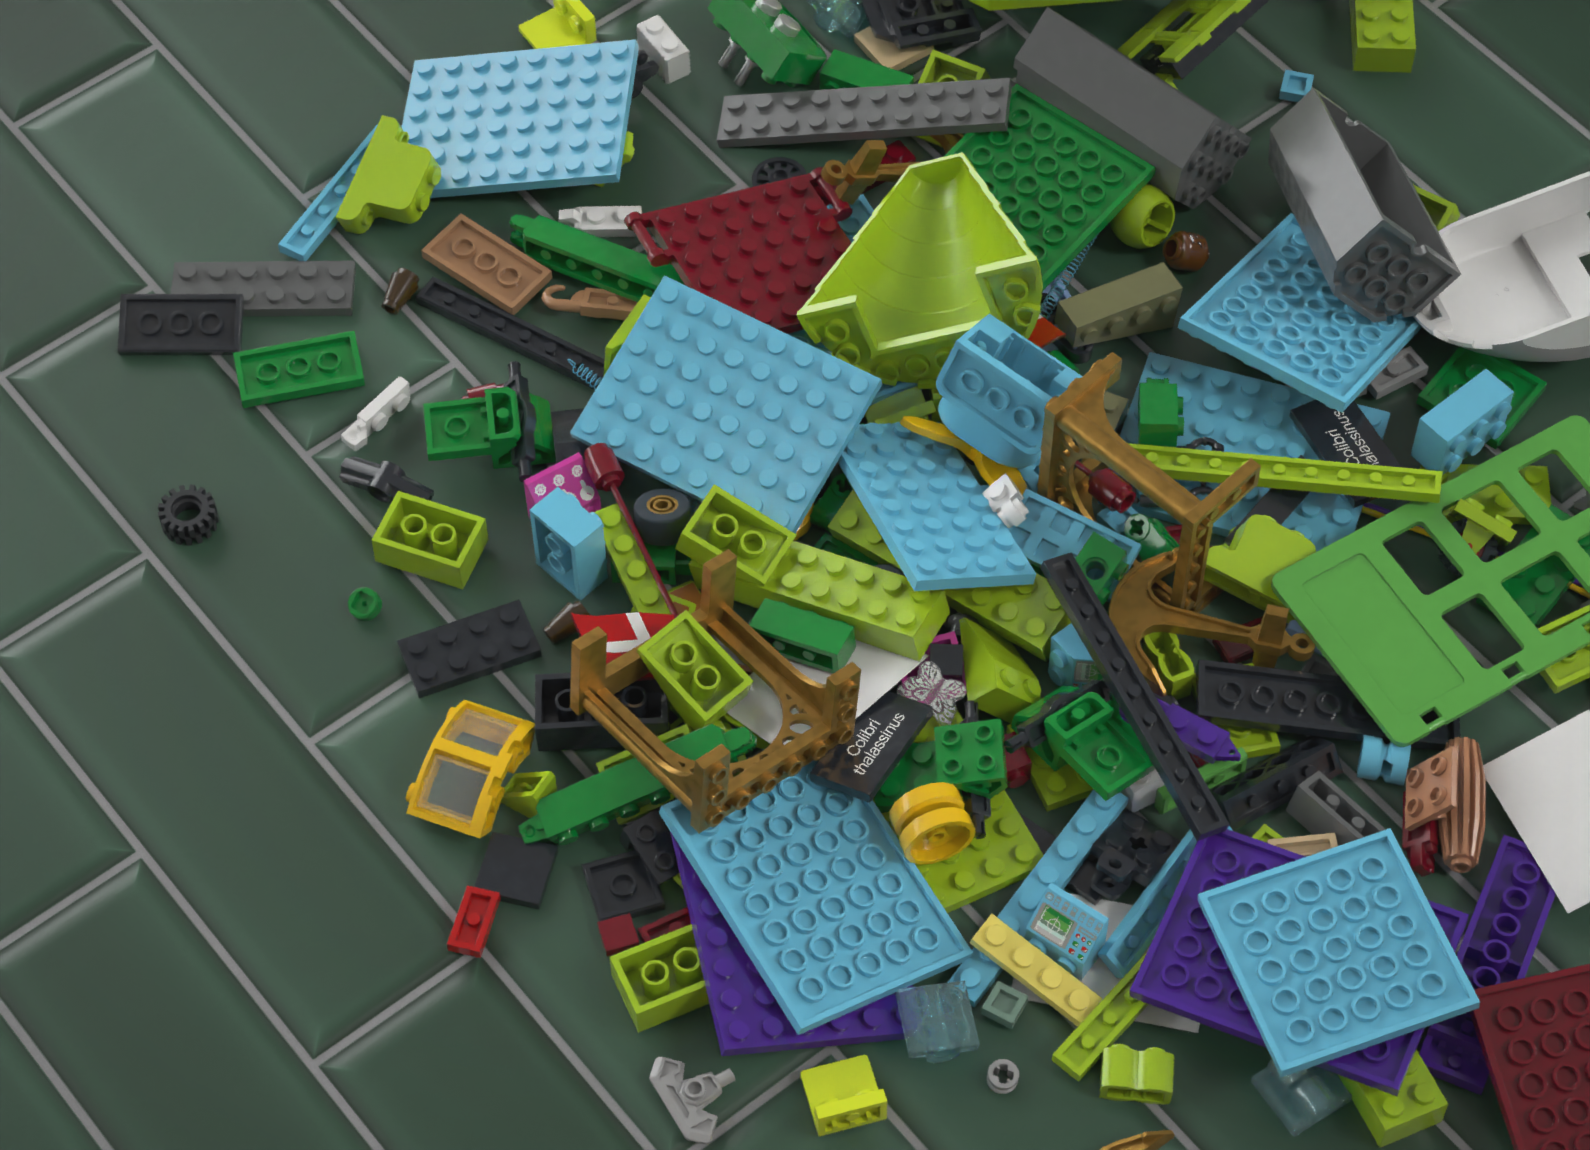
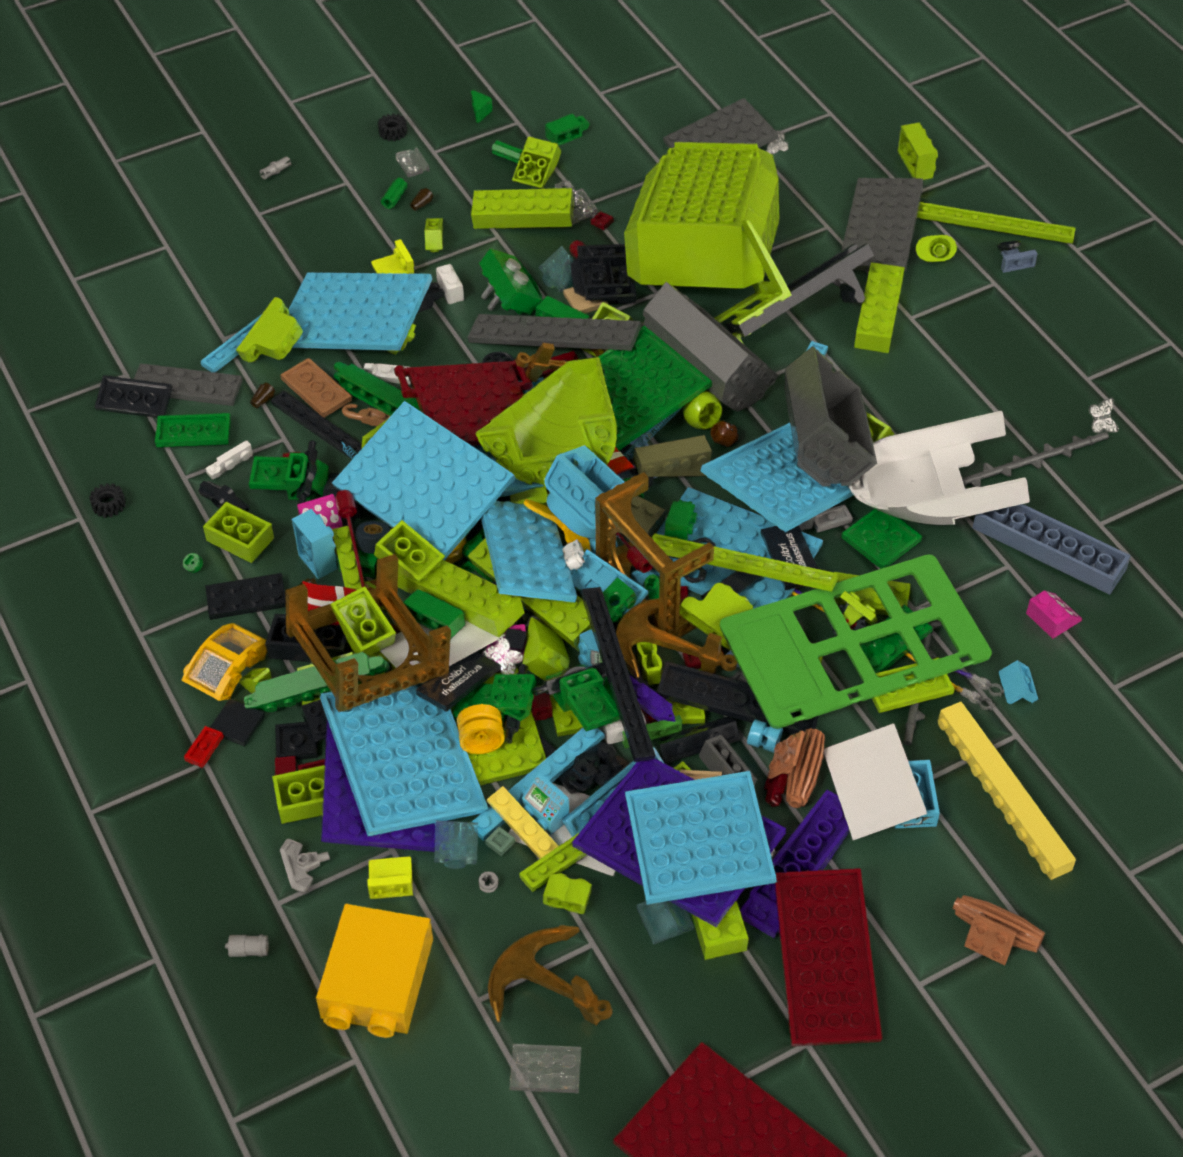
camera: 10 degrees right, 5 degrees down
(1462, 423) = (860, 550): medium azure brick -> none

